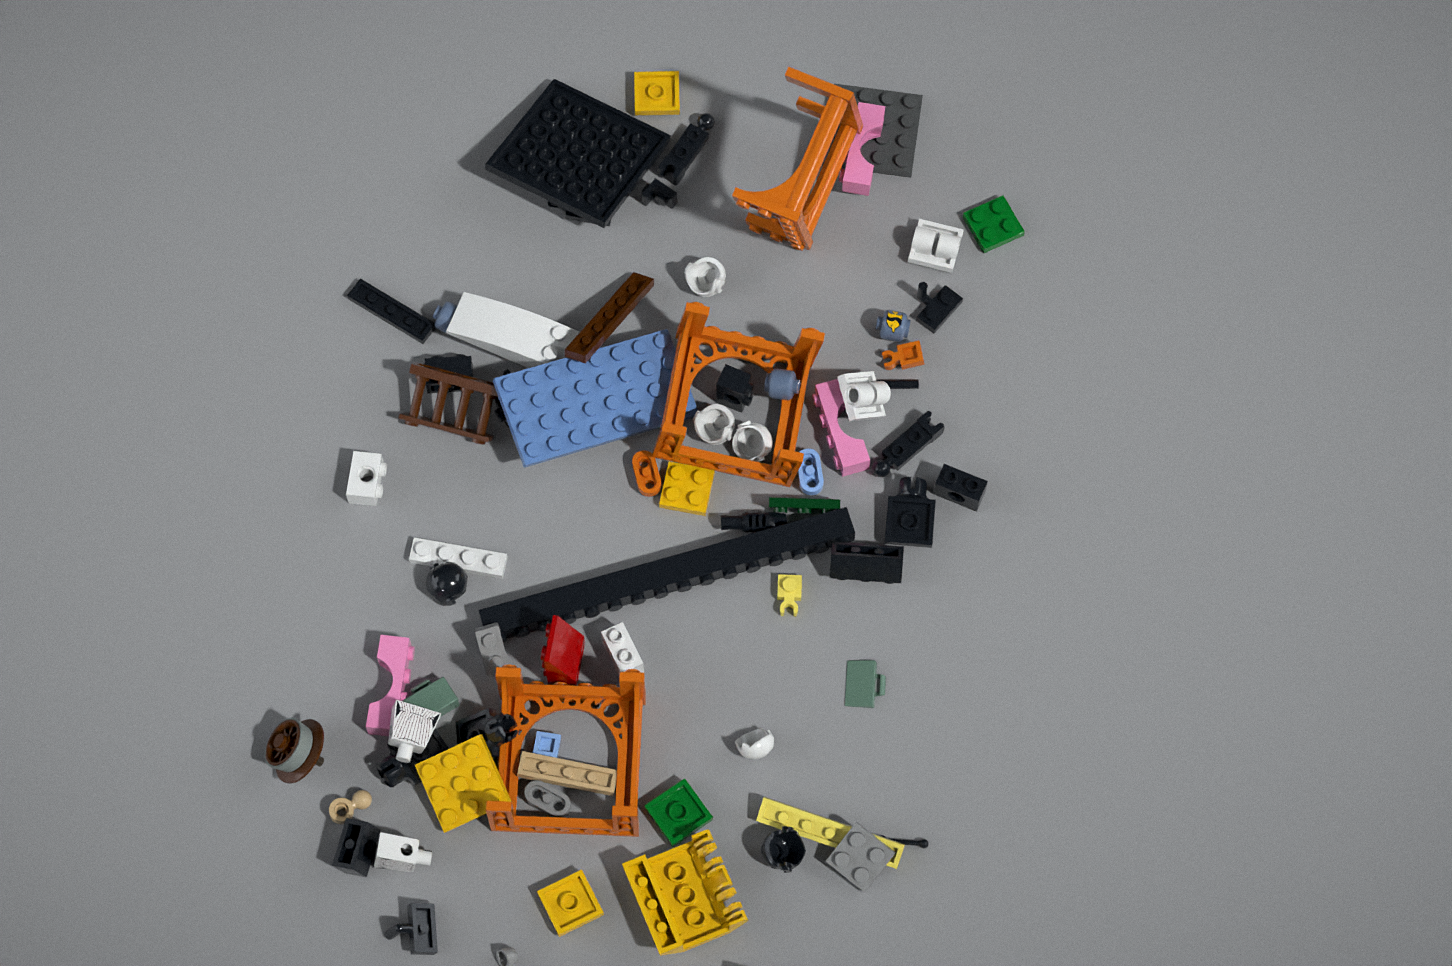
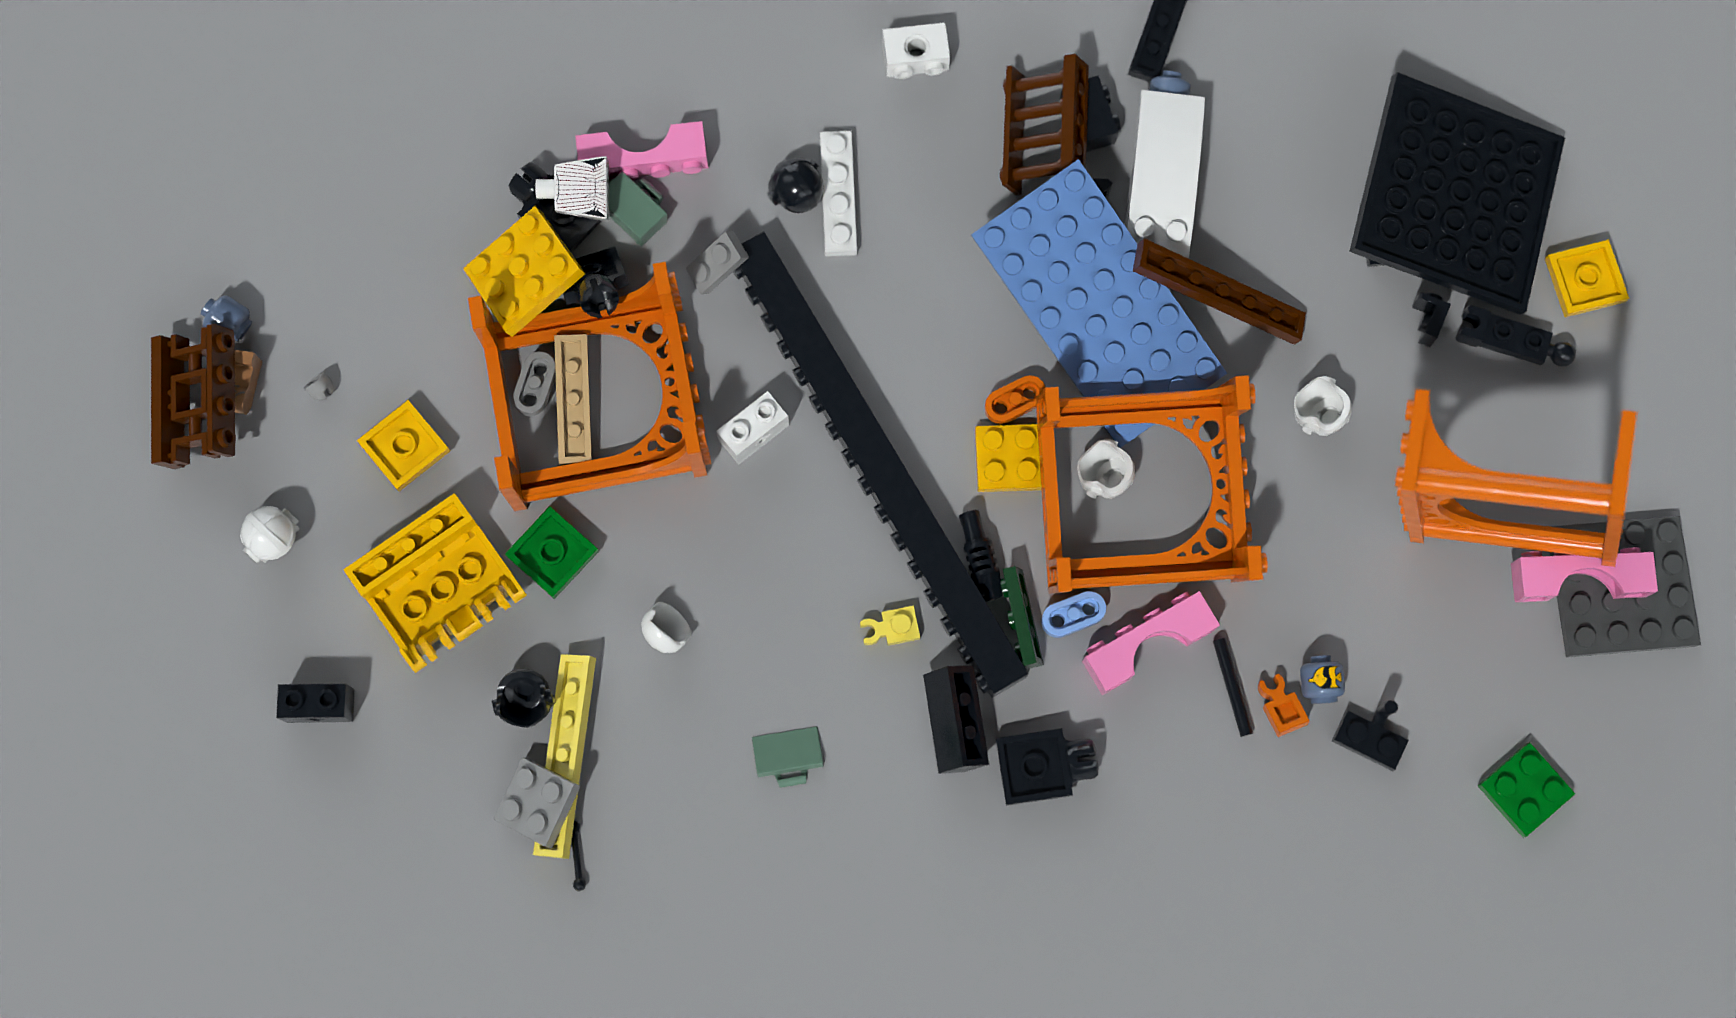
camera: 75 degrees right, 10 degrees up
(295, 748) = (525, 58): reddish brown piece -> none
(356, 847) = (417, 166): black brick -> none
(361, 800) = (486, 159): tan plate -> none
(390, 855) = (420, 207): white torso -> none
(420, 929) = (332, 272): black plate -> none
(547, 744) = (606, 365): light blue plate -> none
(563, 652) = (724, 348): red slope -> none
(734, 388) = (1163, 483): black brick -> none
(752, 441) = (1092, 526): white cap -> none
(782, 384) = (1184, 544): sand blue head -> none
(863, 395) = (1200, 660): white plate -> none
(908, 445) = (1147, 739): black plate -> none
(935, 245) = (1466, 713): white plate -> none
(960, 487) = (1101, 825): black brick -> none

